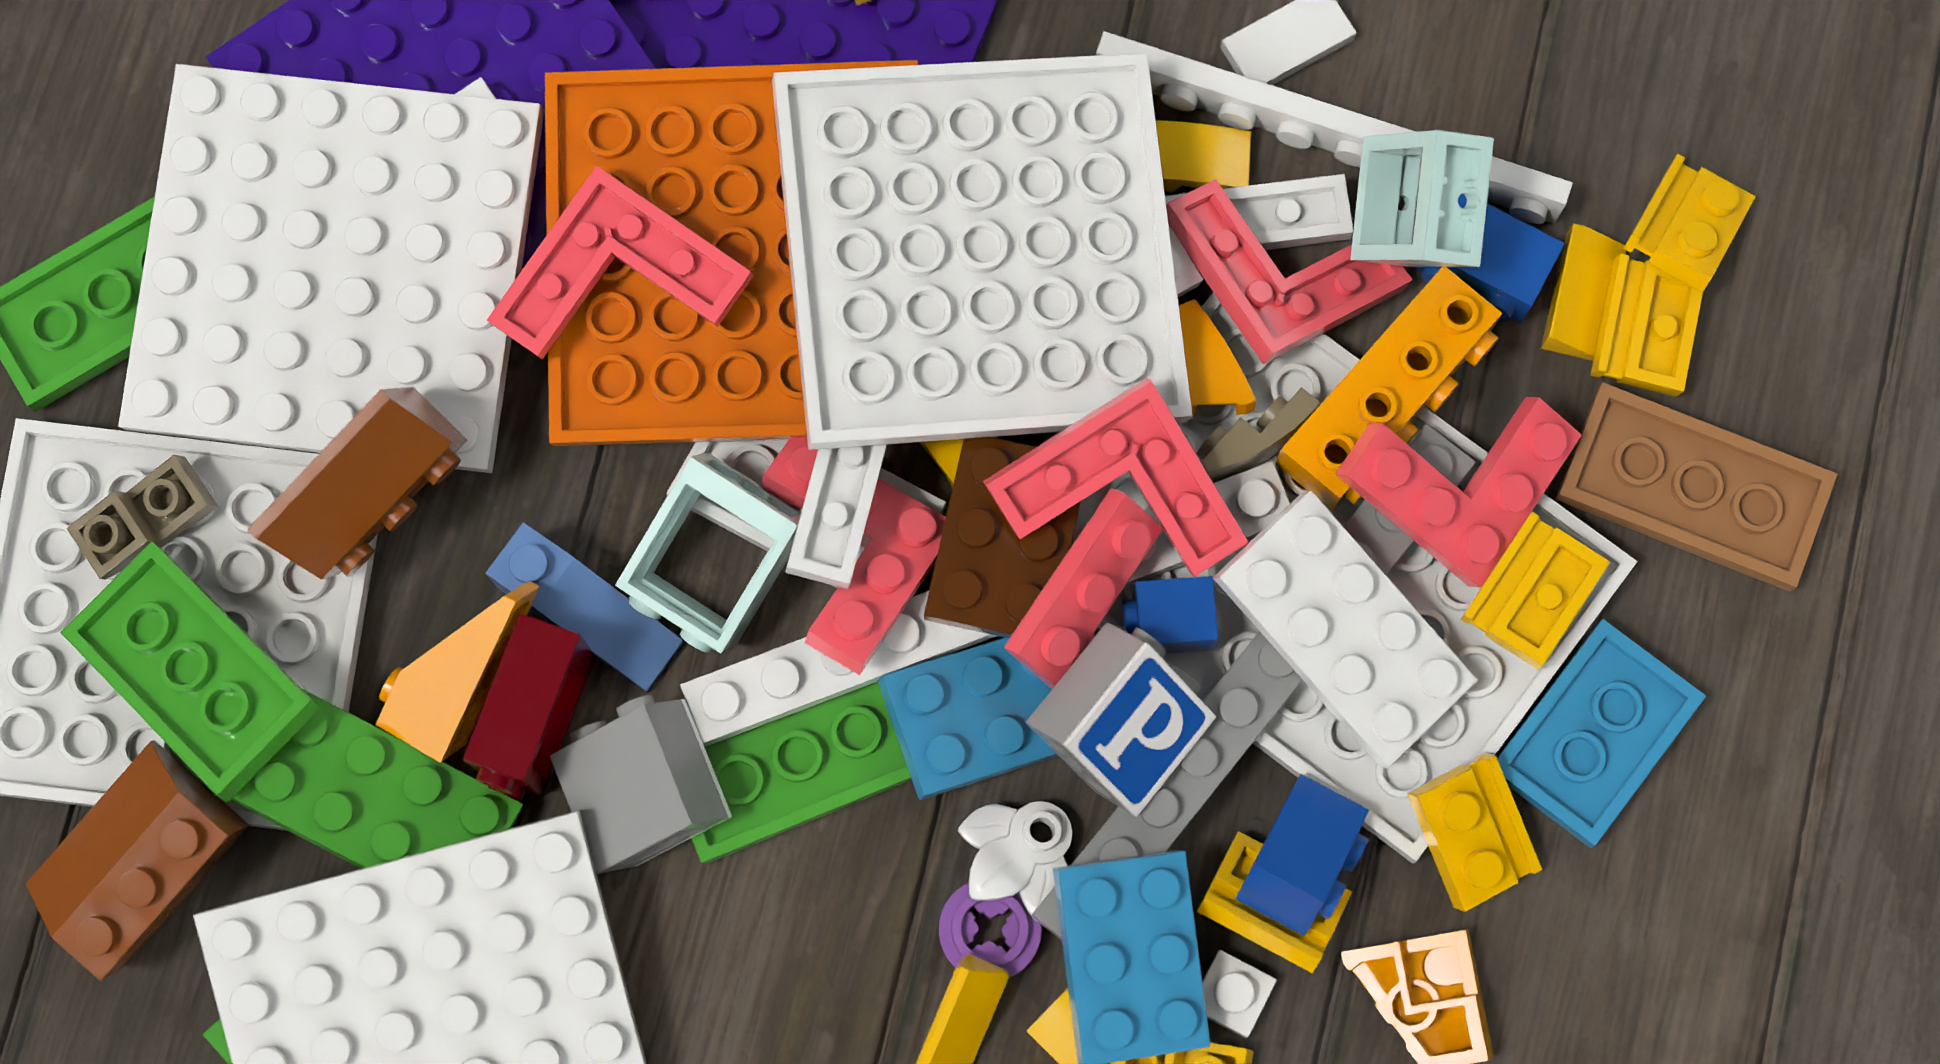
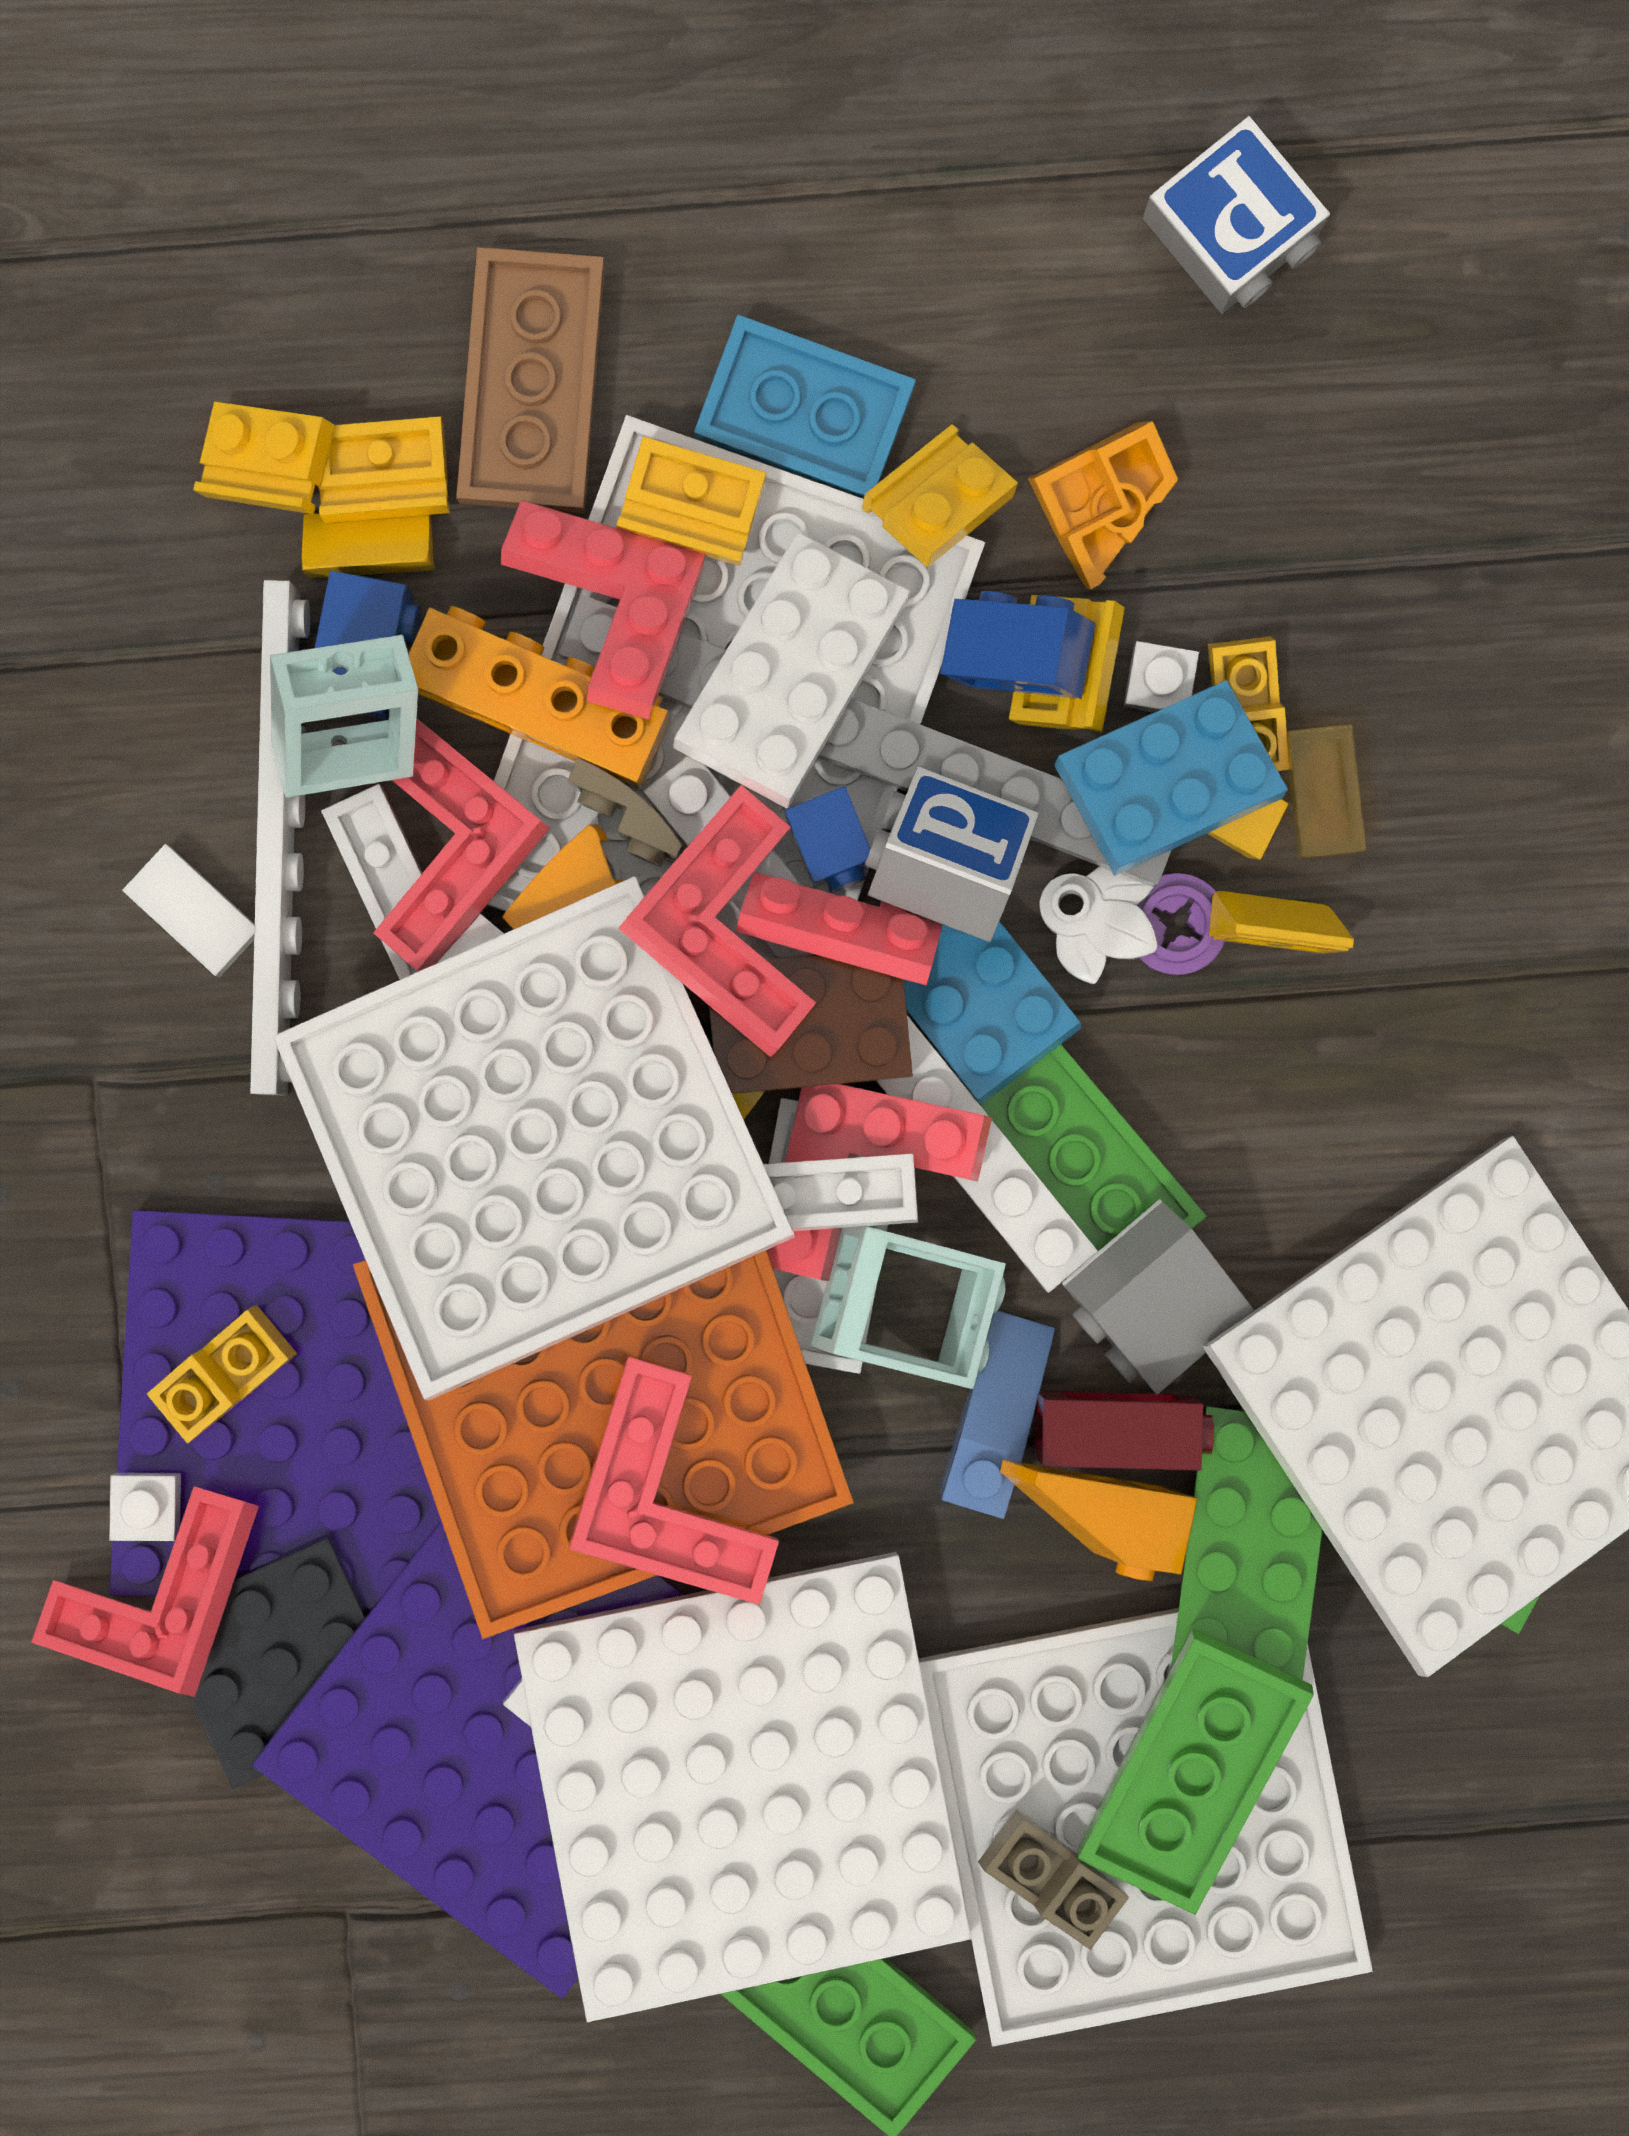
camera: 110 degrees left, 10 degrees up
(132, 861) = (1389, 1762): dark orange slope -> none
(361, 484) = (963, 1665): dark orange slope -> none
(1201, 153) = (343, 955): yellow slope -> none

